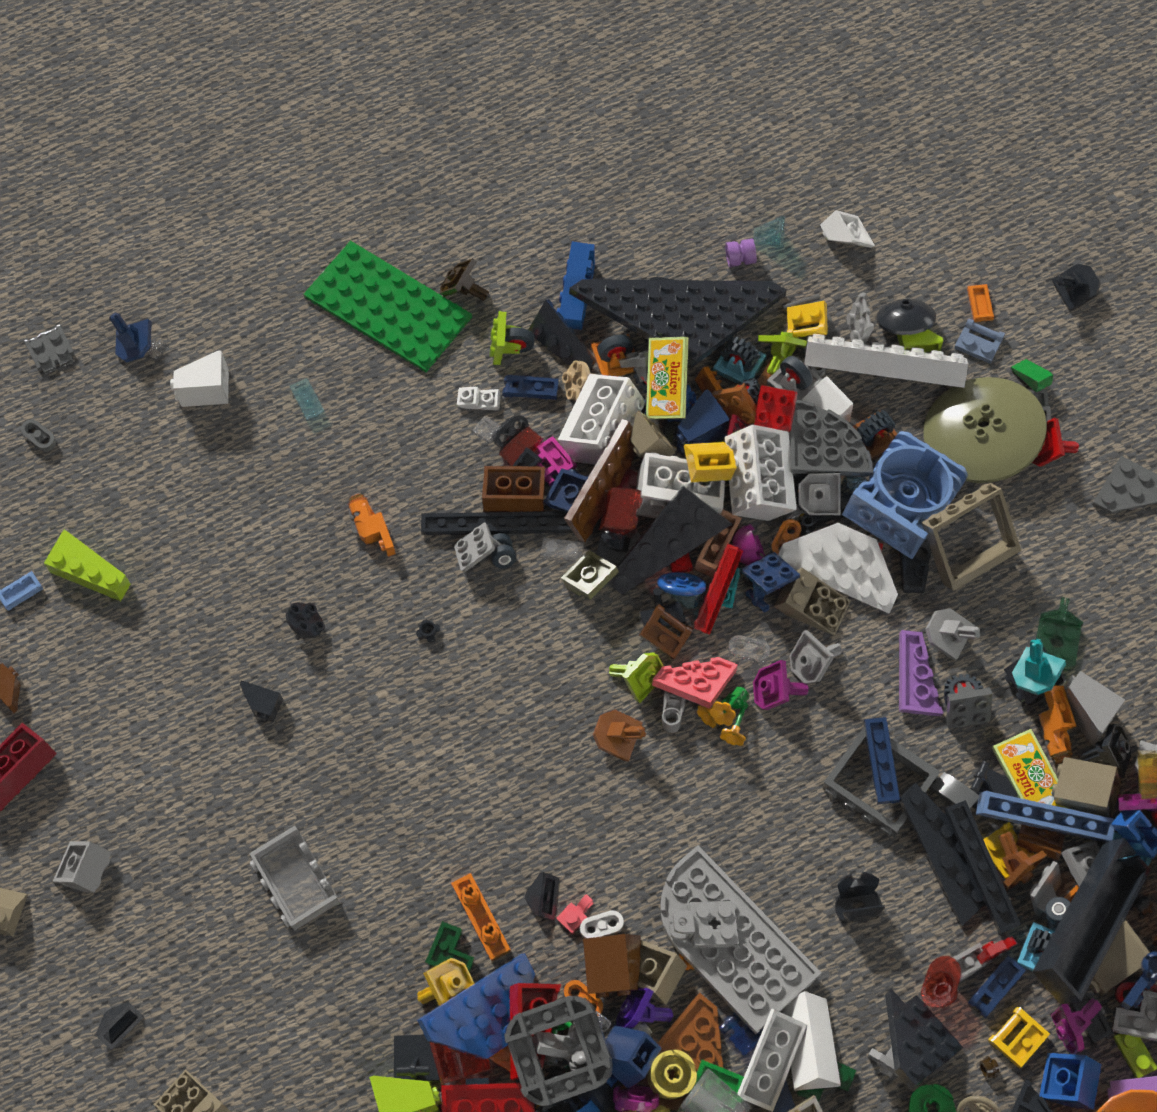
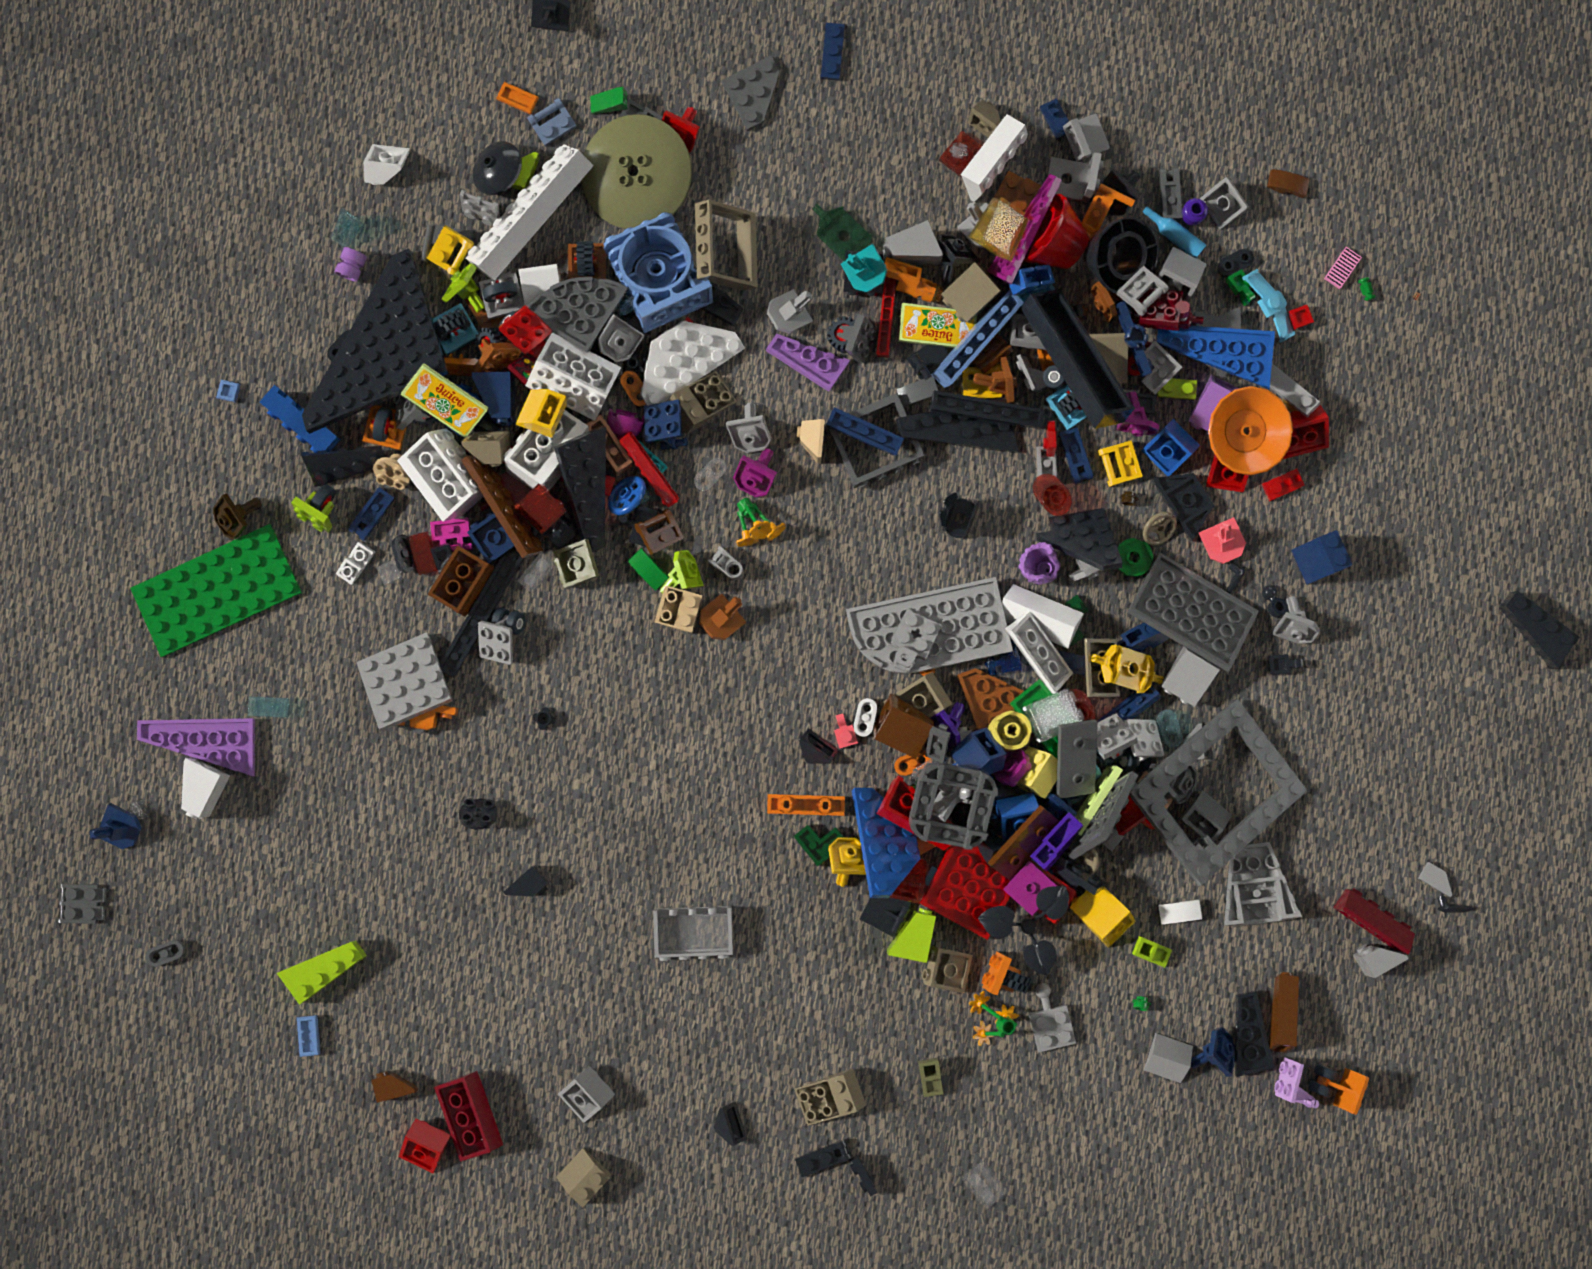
camera: 65 degrees left, 20 degrees up
(251, 372) = (211, 740): none -> medium lavender wing
(392, 492) = (404, 681): none -> light grey plate
(568, 223) = (228, 391): none -> medium blue tile
(602, 690) = (679, 609): none -> tan slope
(615, 1005) = (938, 743): none -> dark grey plate
(623, 643) = (648, 569): none -> green slope
(696, 680) = (714, 531): coral plate -> none
(845, 719) = (811, 437): none -> tan slope
(862, 1009) = (1037, 562): none -> medium lavender hair
(1005, 724) = (886, 317): none -> red piece

